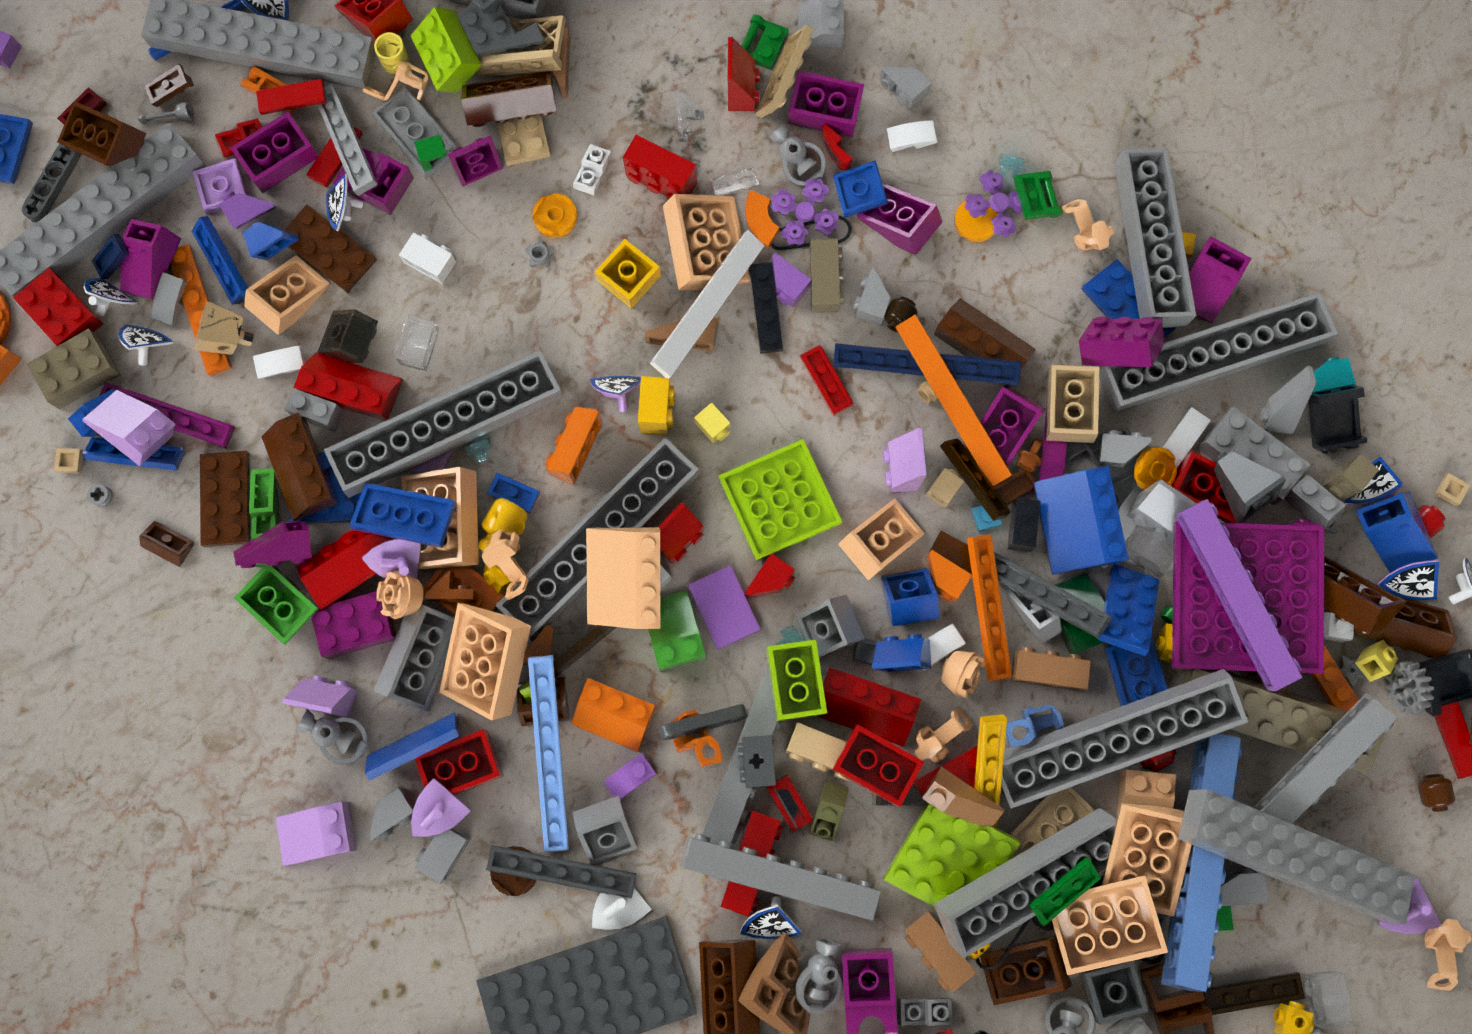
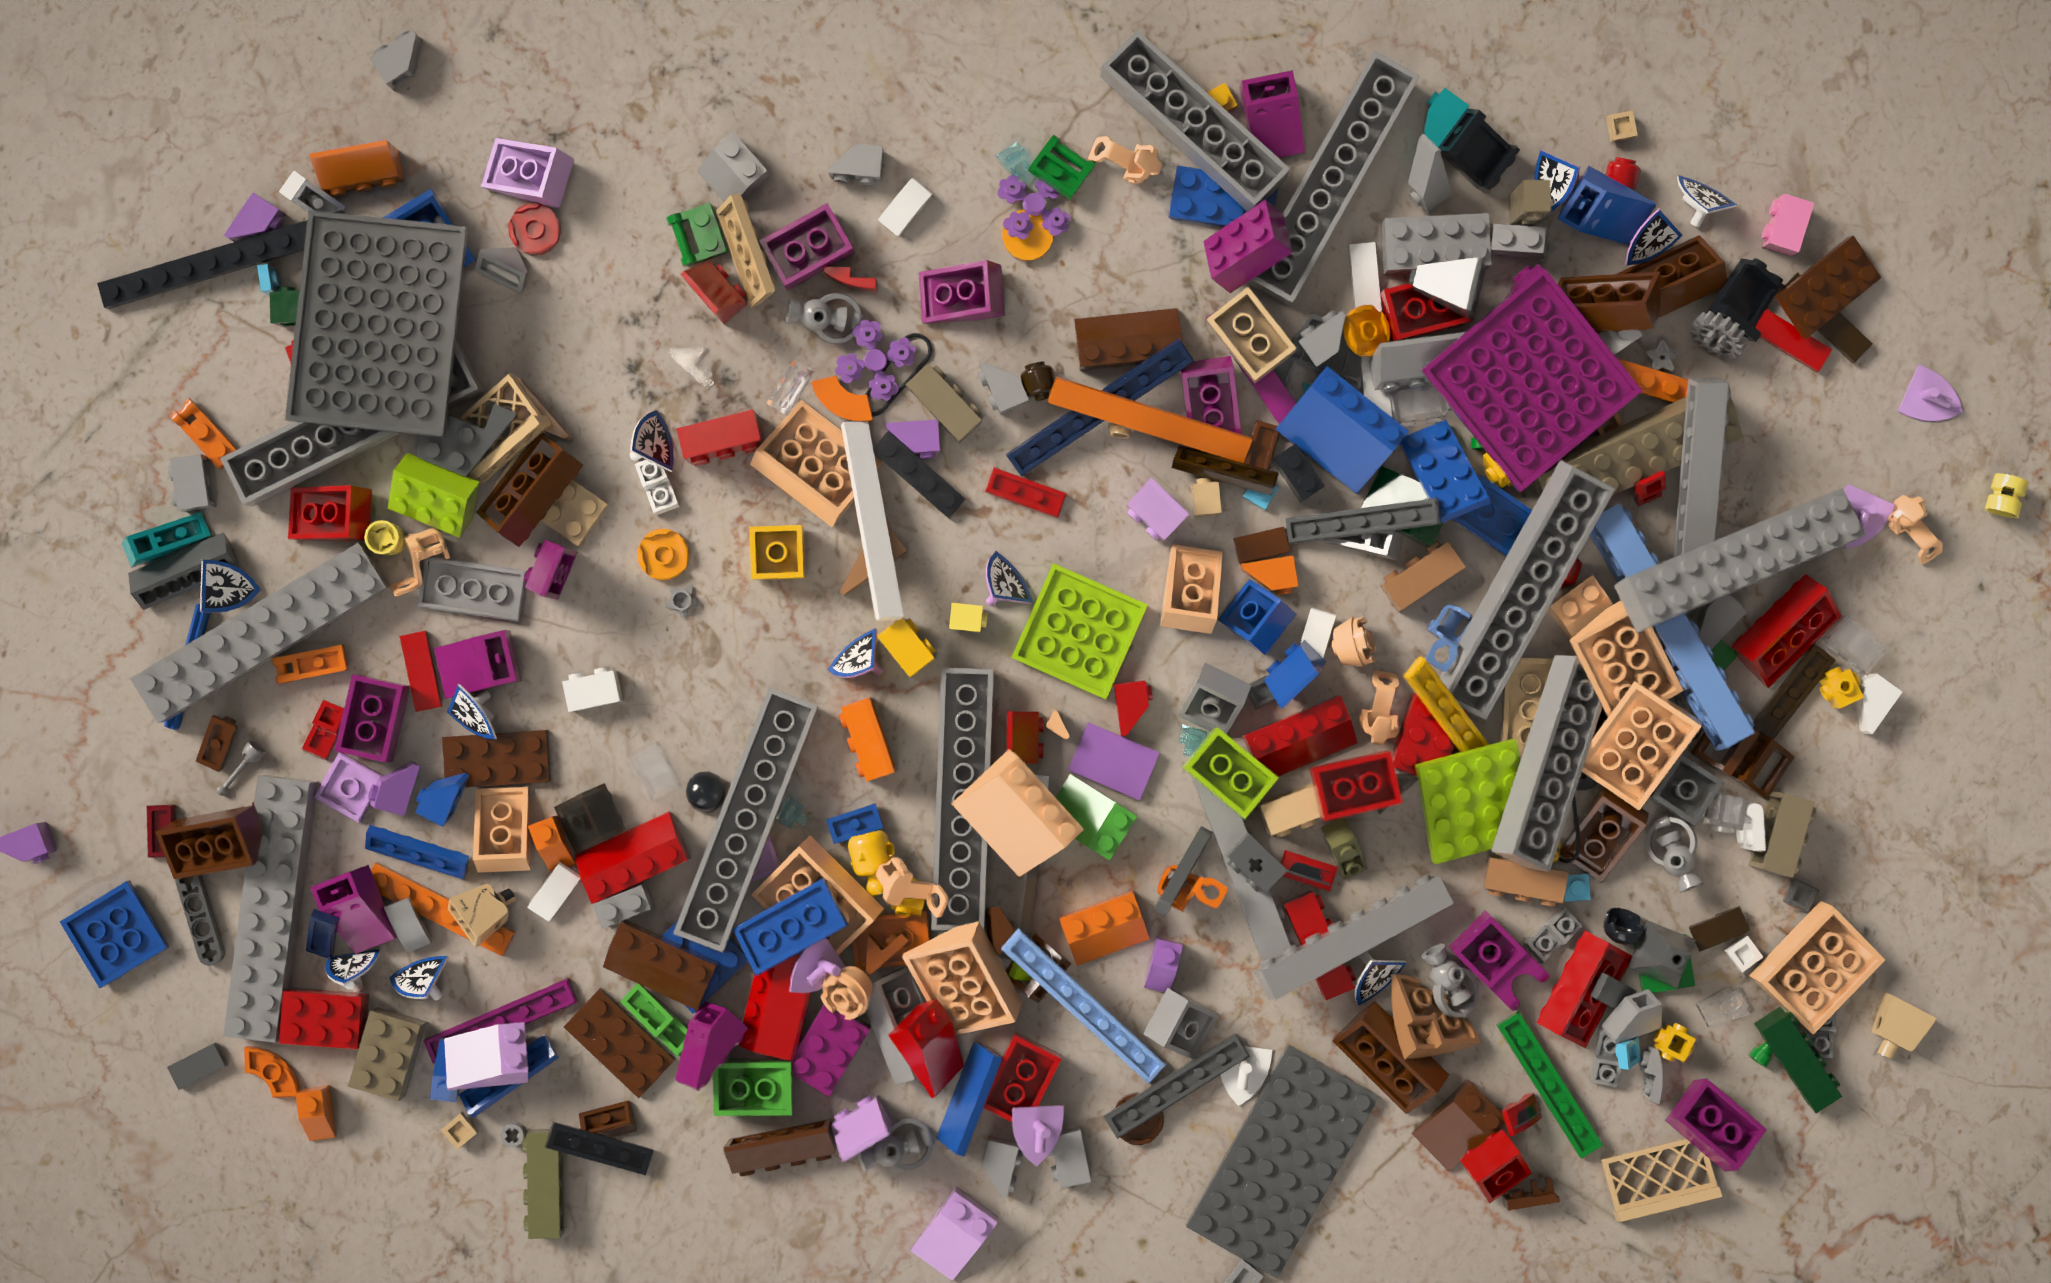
camera: 45 degrees left, 10 degrees up
(85, 545) = (544, 1187): none -> olive brick
(141, 552) = (599, 1148): none -> black plate
(254, 661) = (780, 1147): none -> reddish brown slope
(291, 96) = (338, 656): red tile -> none
(309, 328) = (552, 842): none -> orange slope
(346, 142) = (424, 653): light grey plate -> none
(419, 685) = (929, 1045): none -> red slope
(430, 149) = (507, 597): green panel -> none
(436, 383) = (705, 792): none -> black hair
(614, 136) = (652, 441): none -> shield
(707, 548) = (1056, 725): none -> light nougat slope
(759, 422) = (1005, 582): none -> shield
(860, 189) = (904, 297): blue tile -> none
(960, 800) = (1441, 751): medium nougat slope -> none
(971, 993) = (1577, 887): none -> medium azure plate
(989, 607) = (1329, 569): orange plate -> none
(1028, 459) = (1254, 413): dark orange piece -> none
(1065, 891) = (1583, 748): green tile -> none
(1238, 595) = (1522, 389): medium lavender brick -> none
(1268, 750) = (1649, 488): none -> red slope
(1286, 944) = (1787, 630): none -> red slope
(1377, 660) = (1675, 334): light yellow brick -> none
(1436, 792) = (1808, 401): reddish brown head -> none

